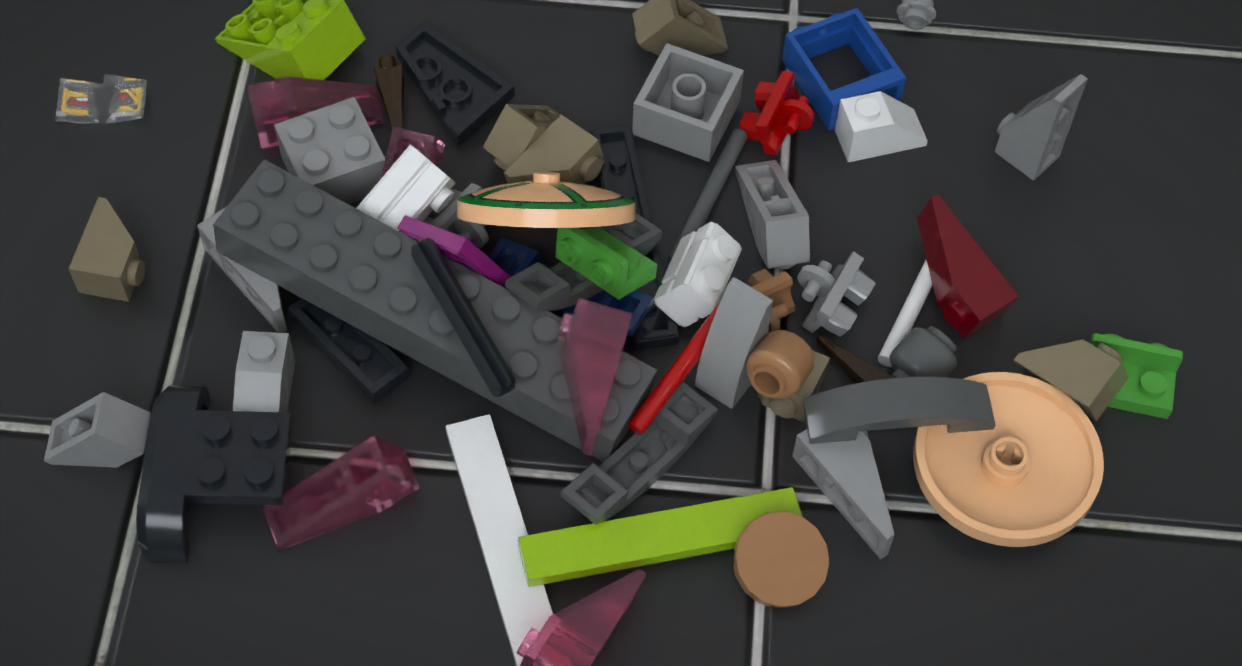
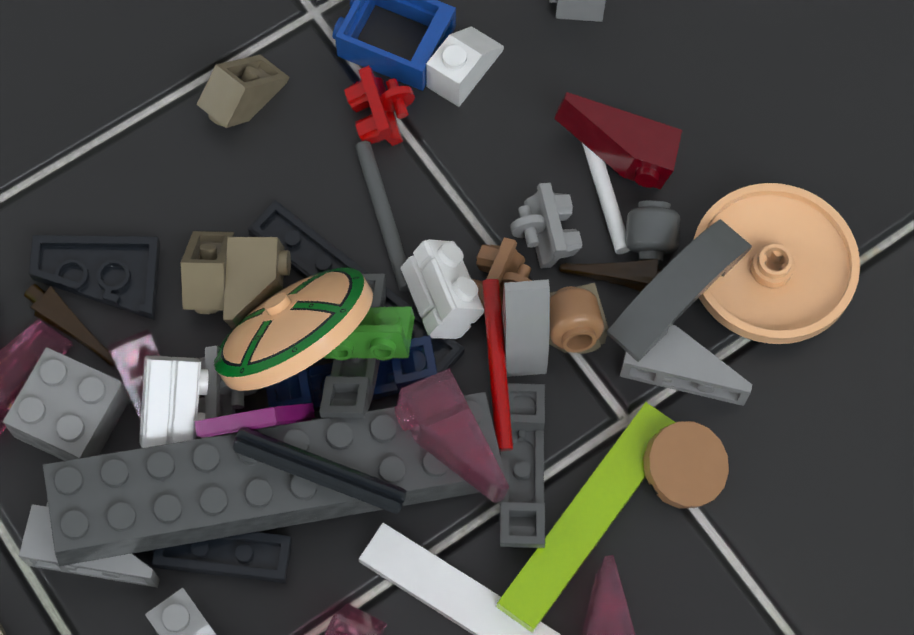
camera: 40 degrees left, 10 degrees up
(687, 102) = (308, 149): light grey brick -> none
(774, 214) = (448, 192): light grey slope -> none
(1079, 370) = (768, 159): dark tan slope -> none
(1150, 375) = (794, 131): bright green bracket -> none

